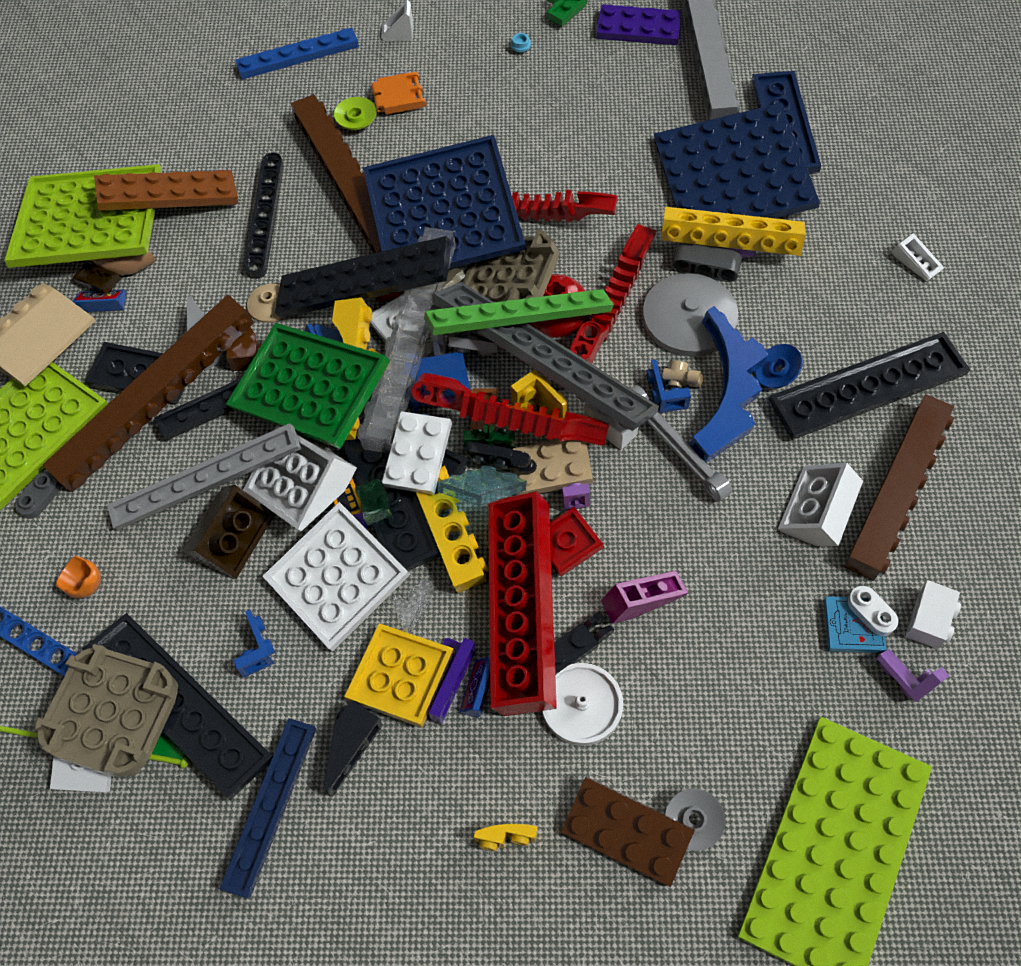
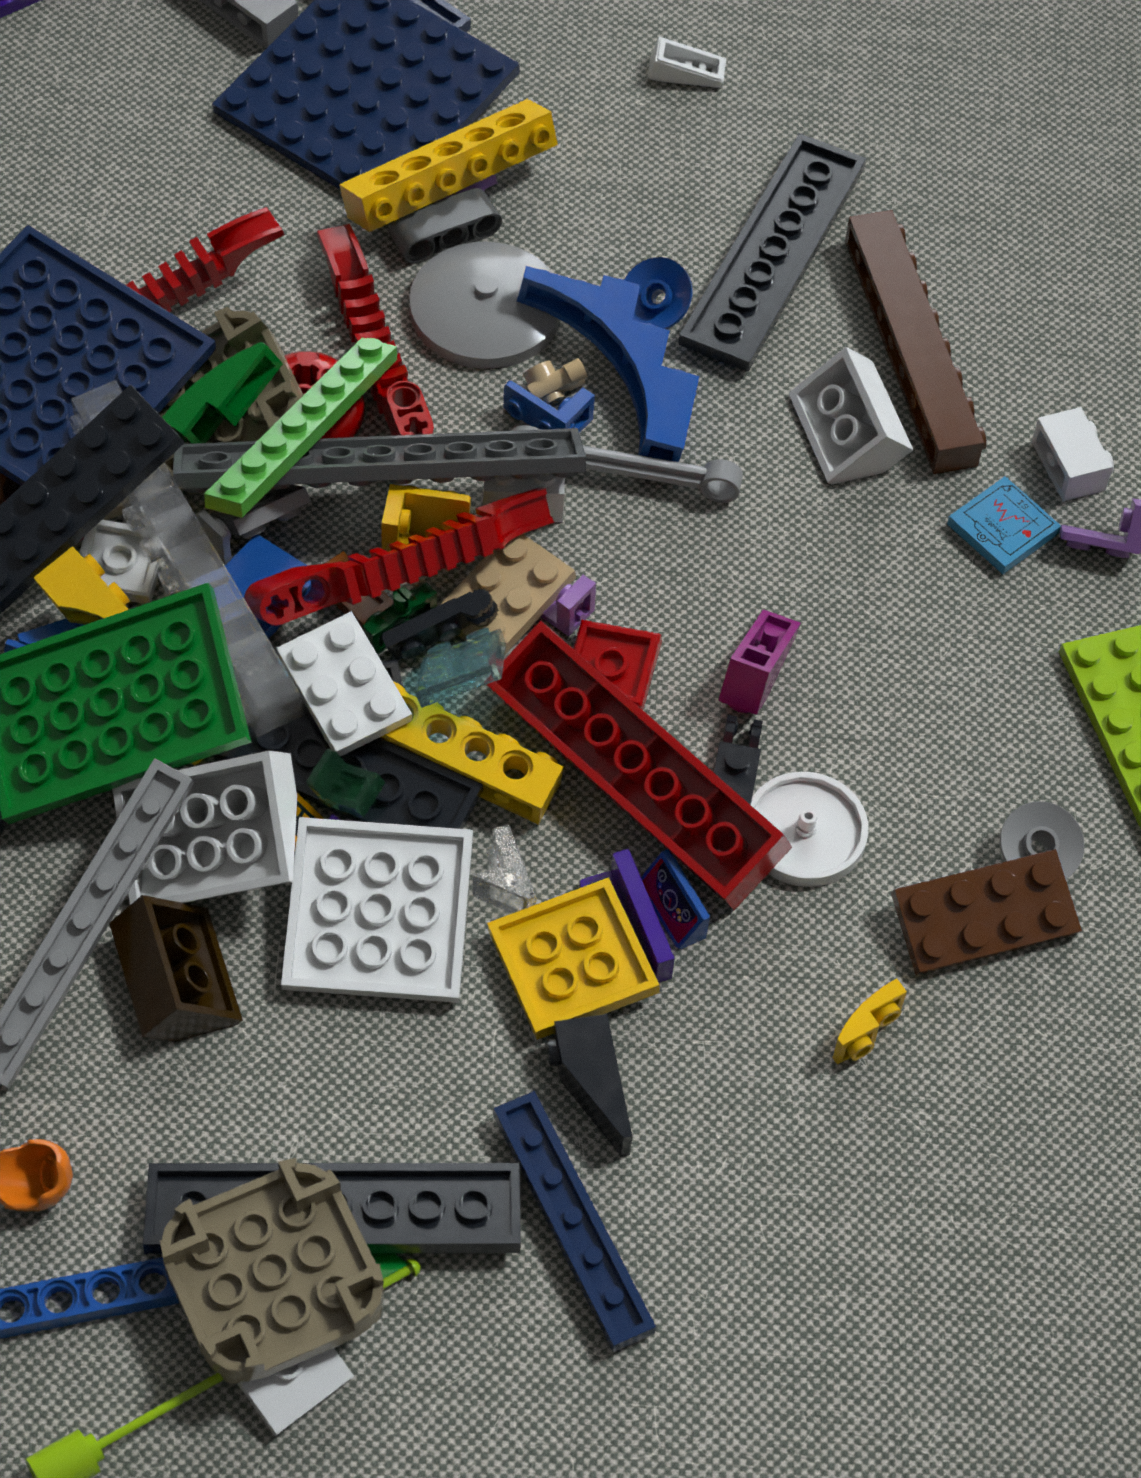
camera: 50 degrees left, 5 degrees down
(255, 660) = (376, 1061): blue bracket -> none
(503, 272) = (223, 394): none -> green slope
(870, 611) = (1011, 493): white plate -> none

